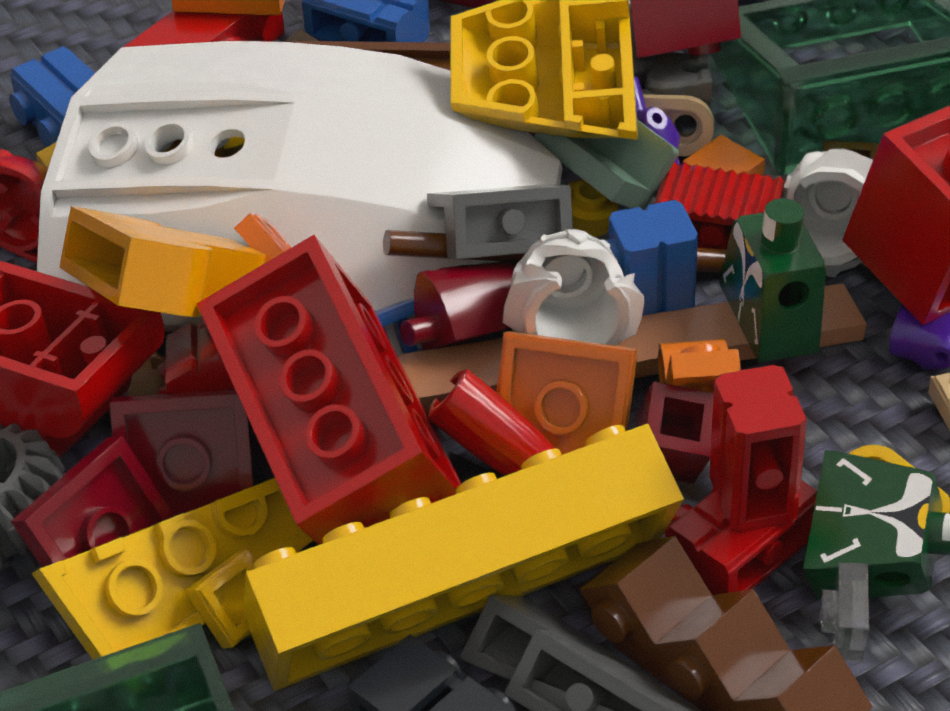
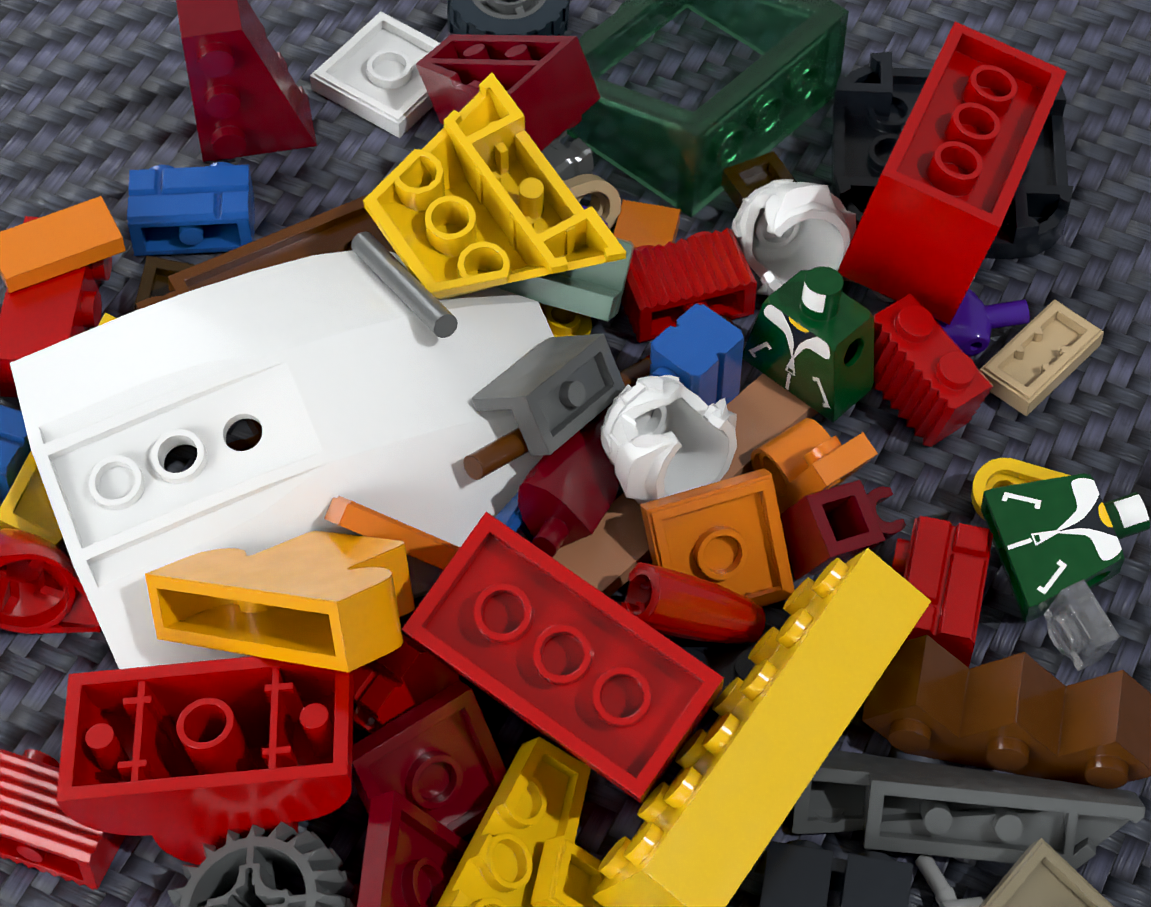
camera: 35 degrees left, 10 degrees up
(438, 94) = (404, 285): none -> dark grey bar
(757, 447) = (951, 520): red brick -> none
(867, 350) = (925, 371): none -> red brick

